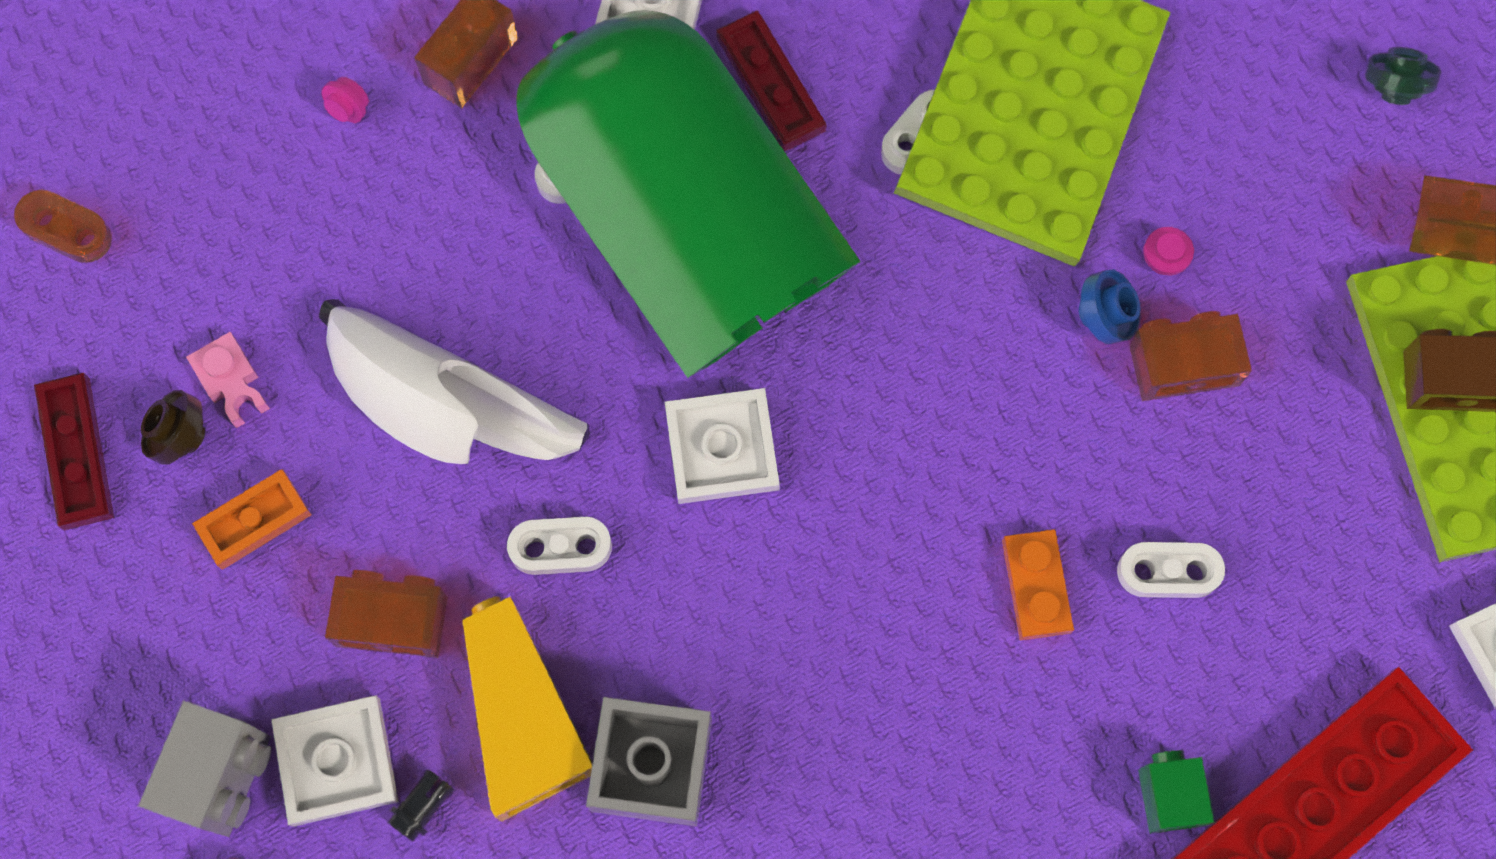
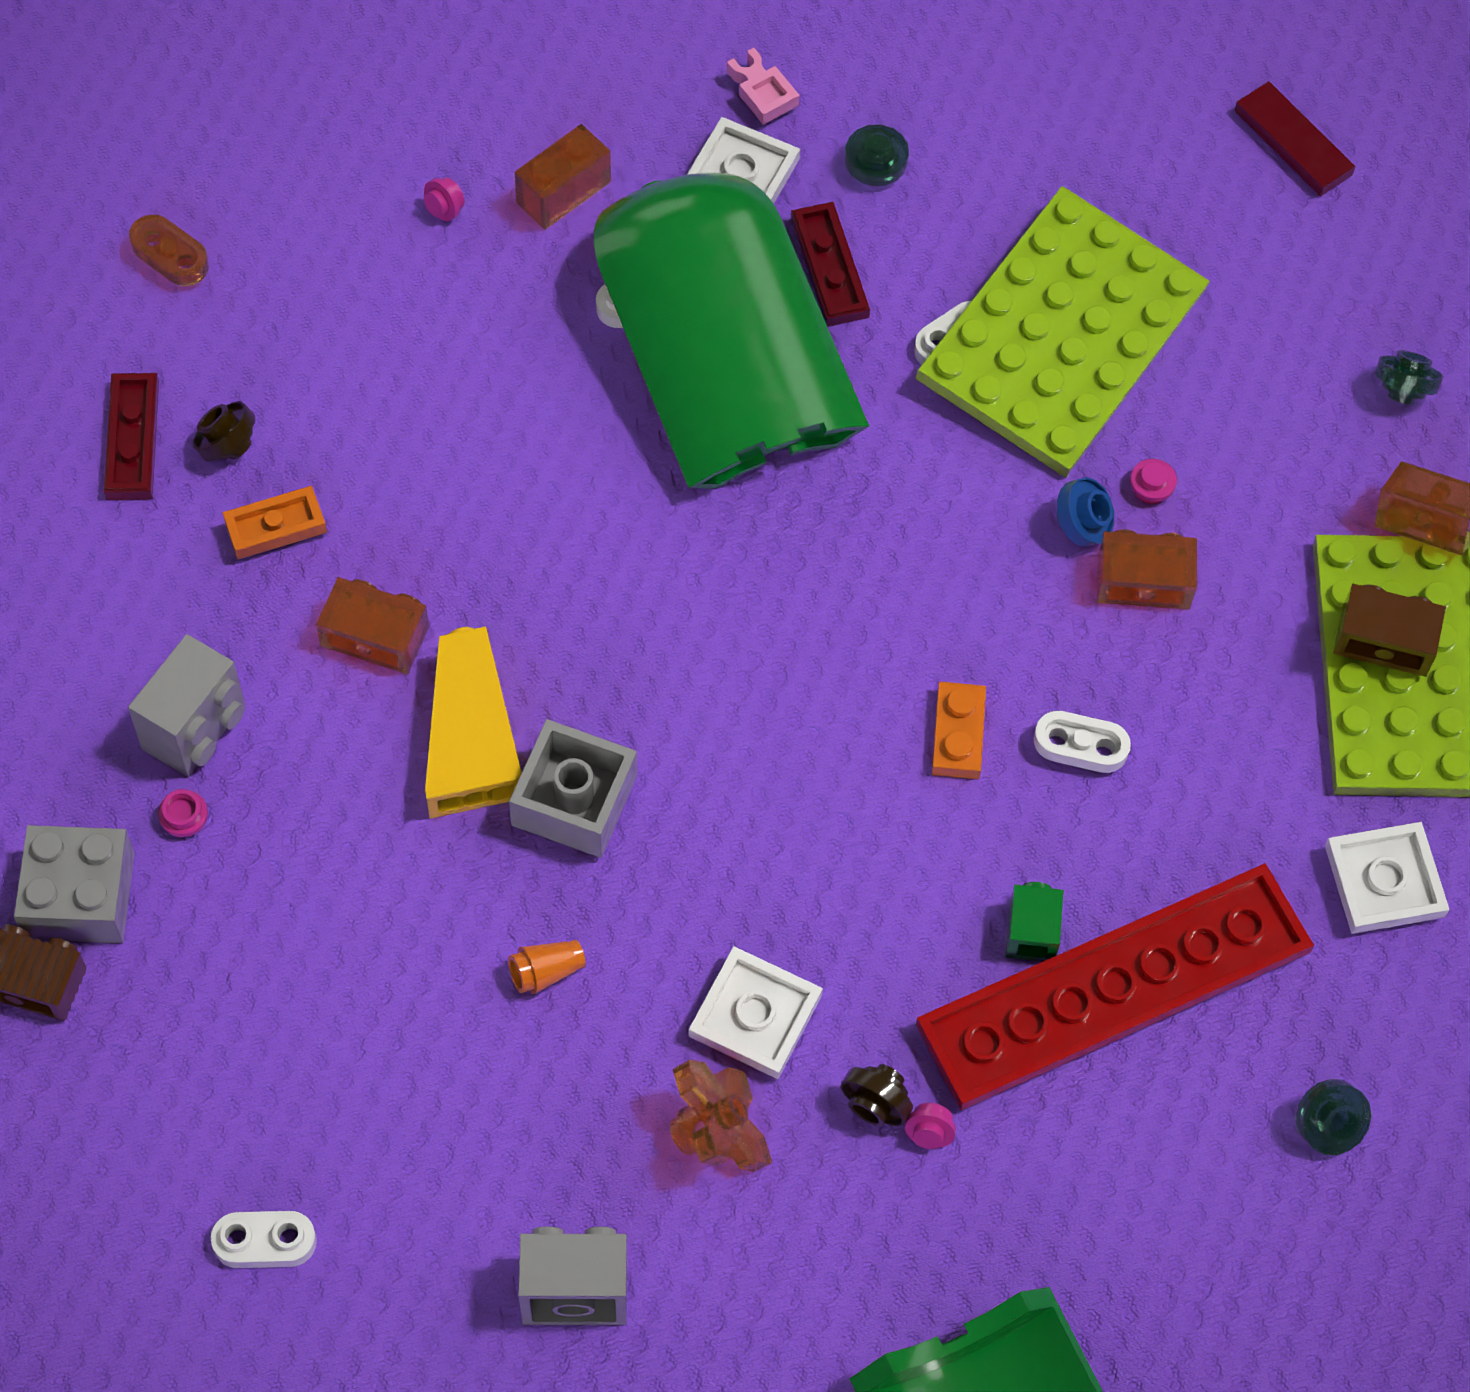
camera: 10 degrees right, 10 degrees down
(225, 374) = (281, 403): bright pink plate -> none
(334, 761) = (297, 731): white plate -> none
(418, 809) = (360, 786): black pin -> none
(436, 397) = (467, 456): white piece -> none
(560, 544) = (540, 600): white plate -> none
(722, 446) = (704, 553): white plate -> none

